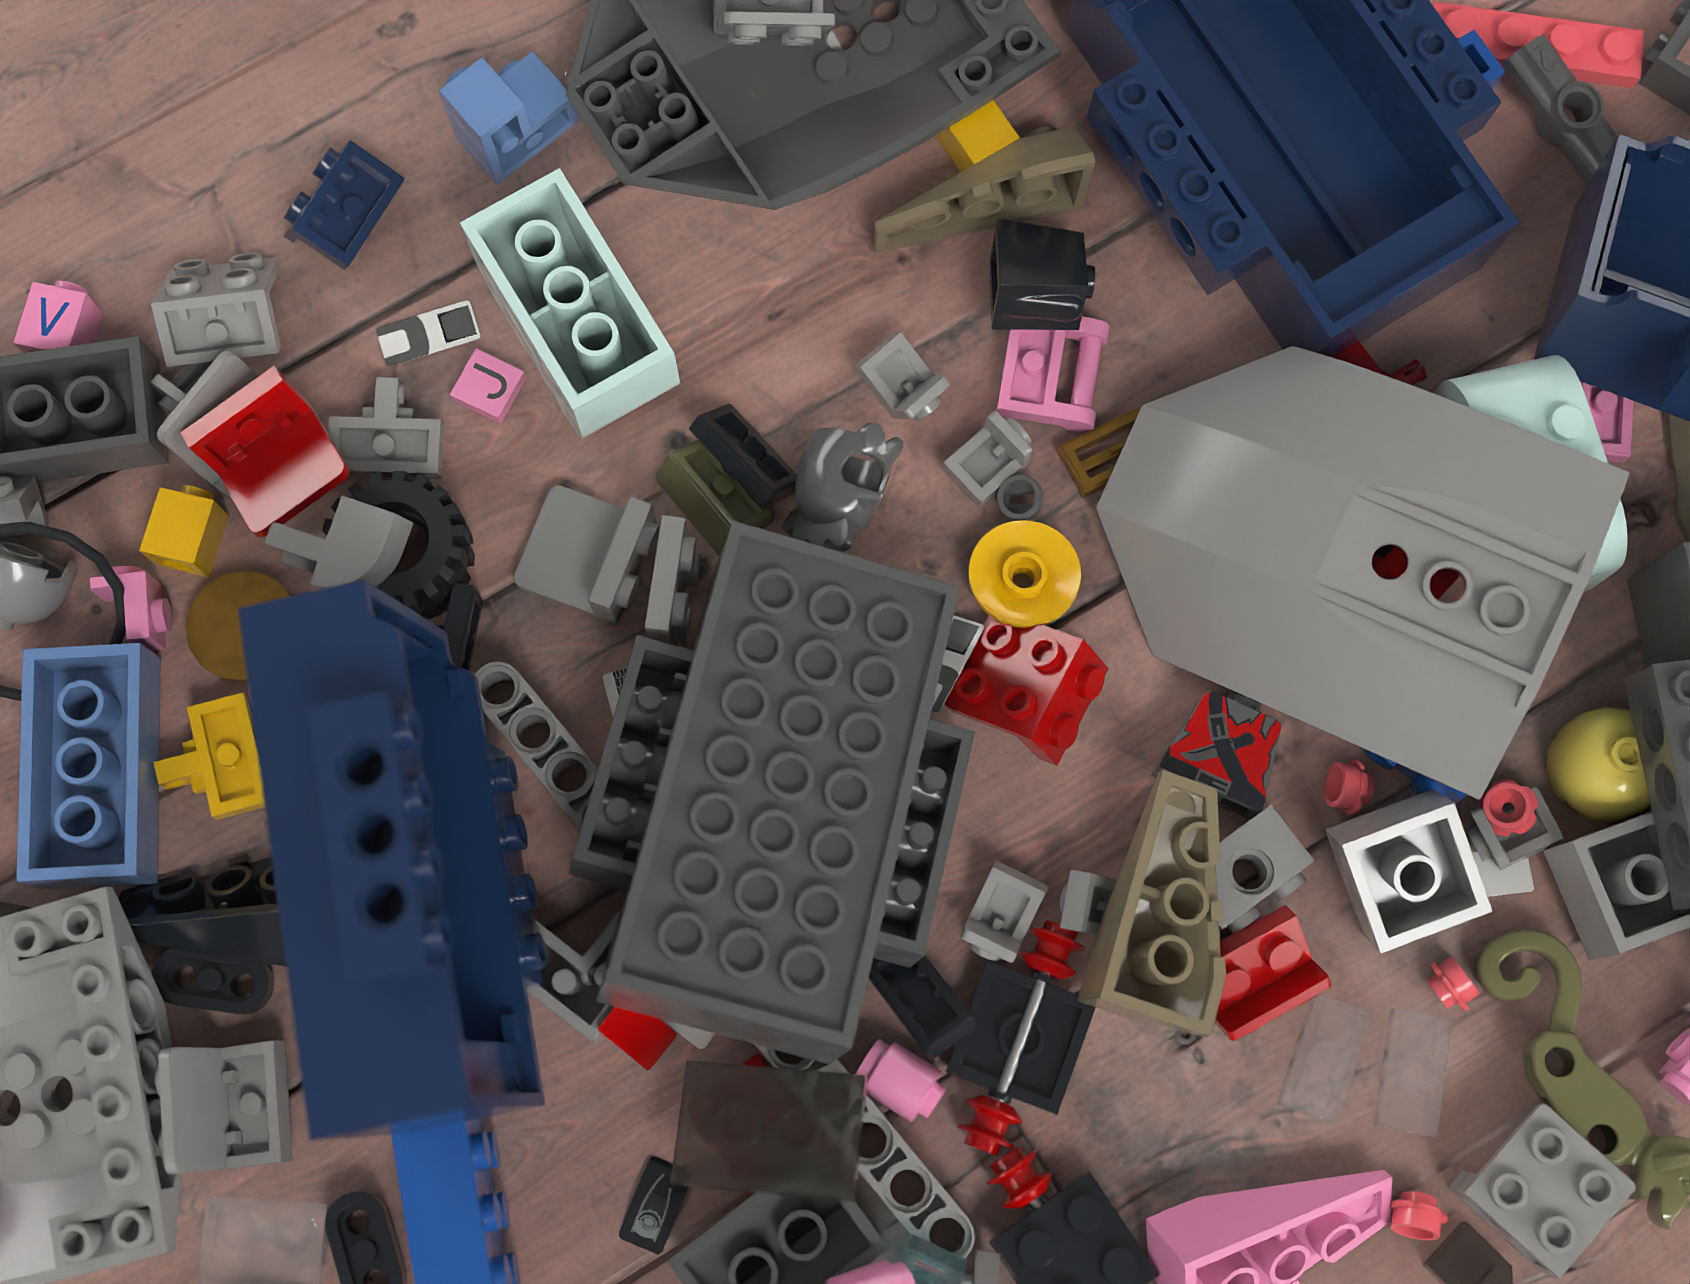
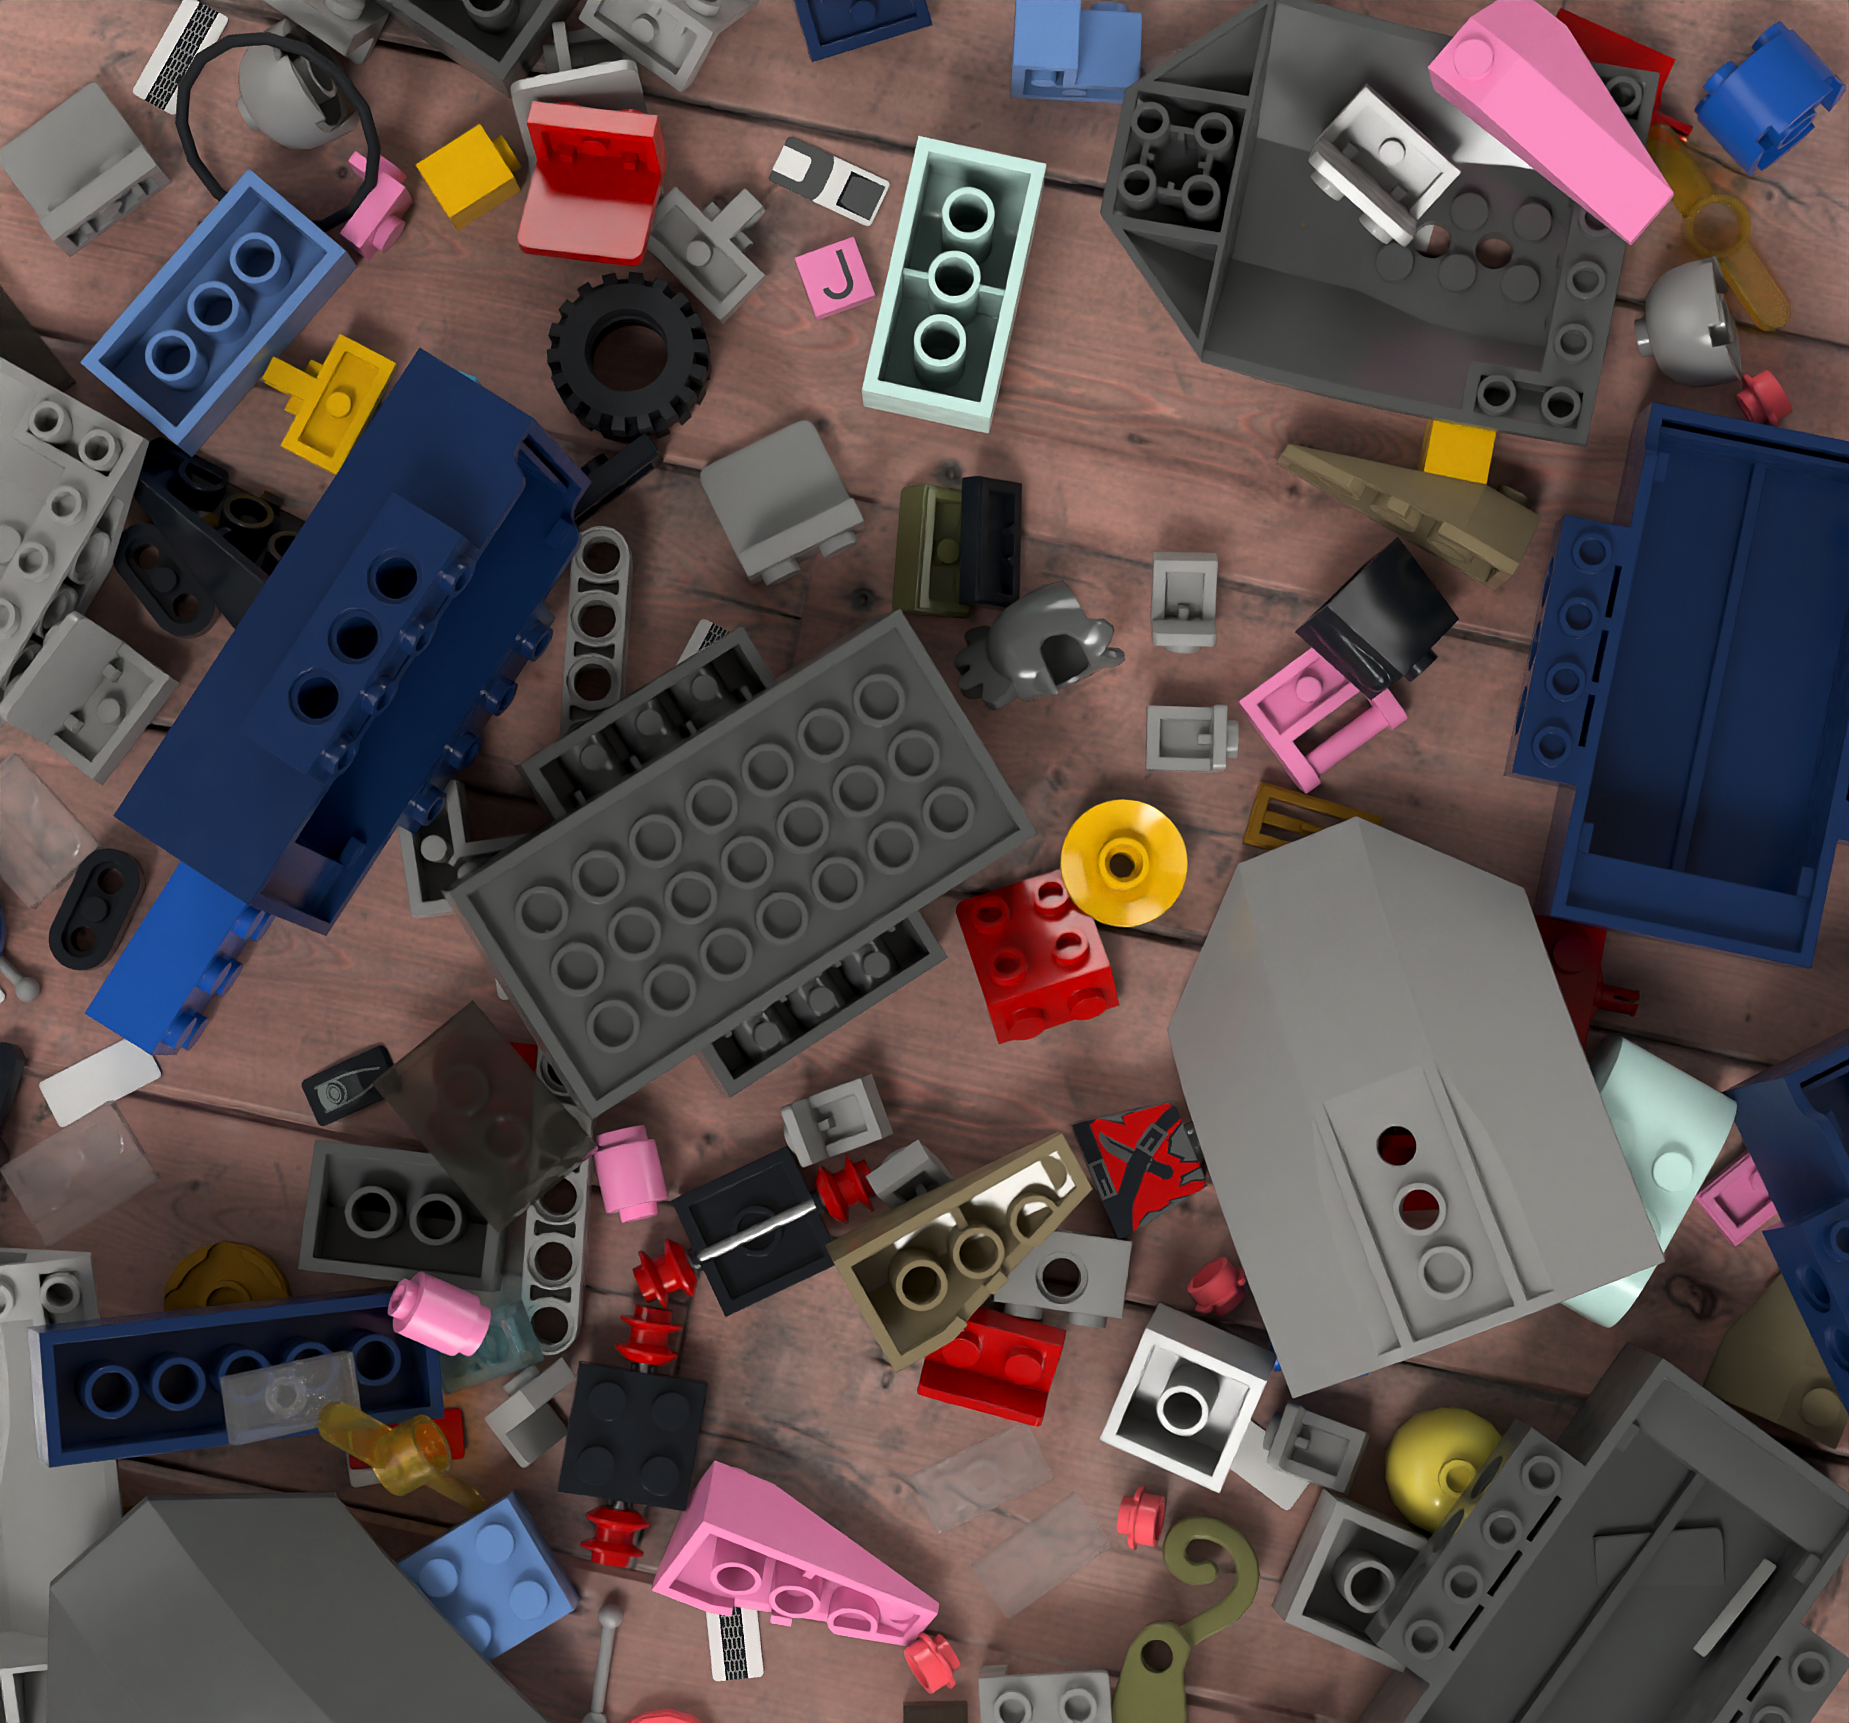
camera: 45 degrees right, 10 degrees up
(214, 621) = (447, 302): pearl gold tile -> none
(359, 545) = (579, 341): light grey brick -> none
(637, 1035) = (452, 944): red sticker -> none
(674, 569) = (838, 587): light grey plate -> none
(922, 1004) = (702, 1131): black plate -> none
(960, 643) = (1011, 870): dark grey sticker -> none
(1020, 486) = (1176, 807): dark grey hinge -> none
(1524, 804) = (1338, 1437): coral plate -> none

